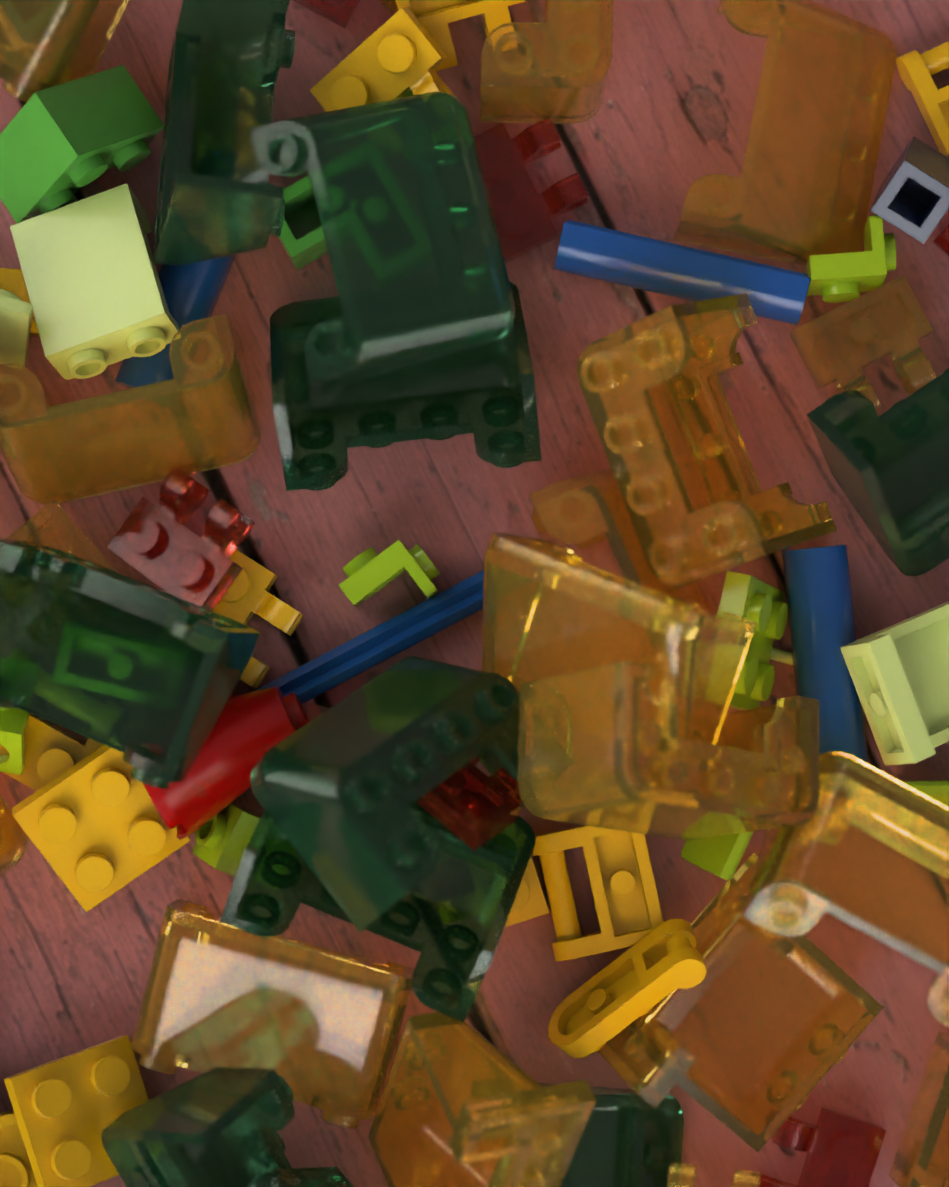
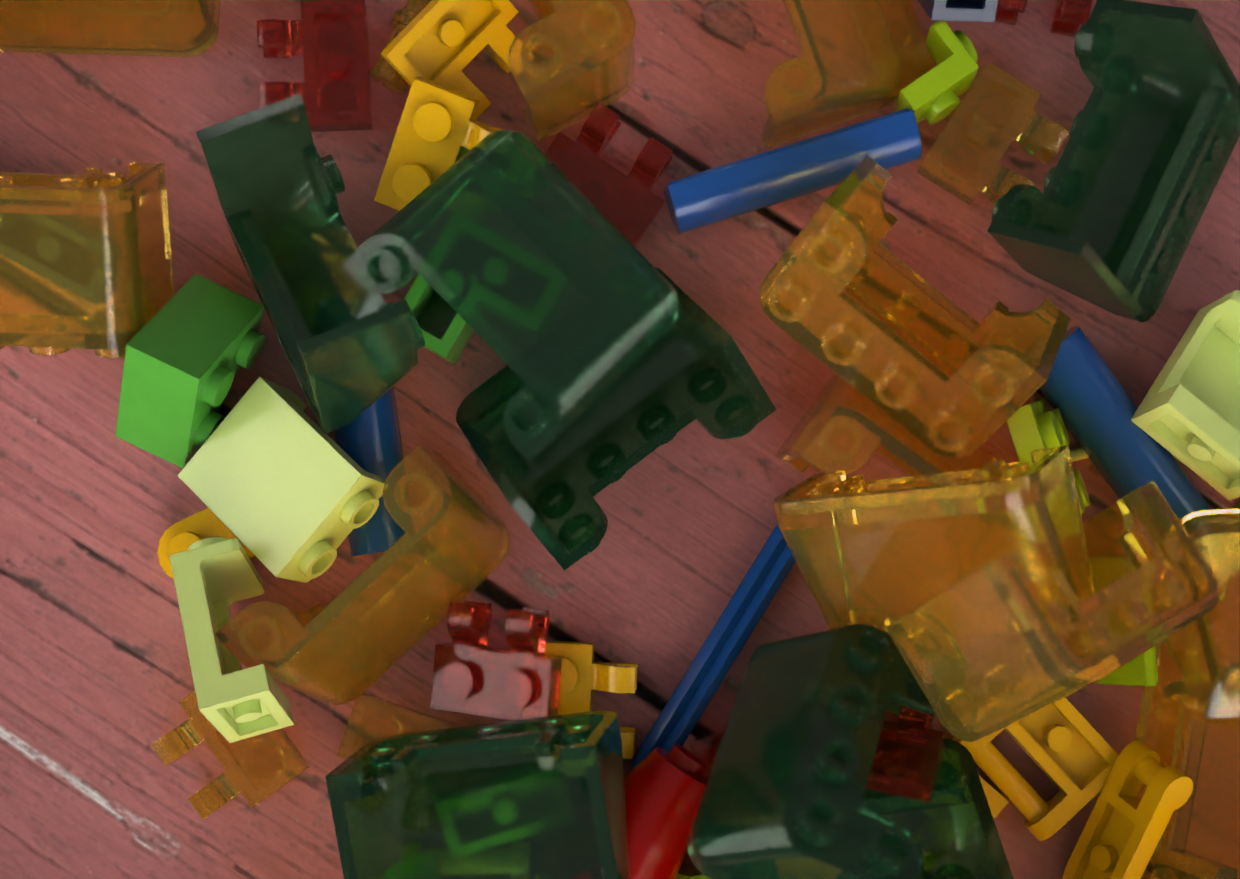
camera: 25 degrees left, 0 degrees up
(372, 572) = (678, 592): lime bracket -> none

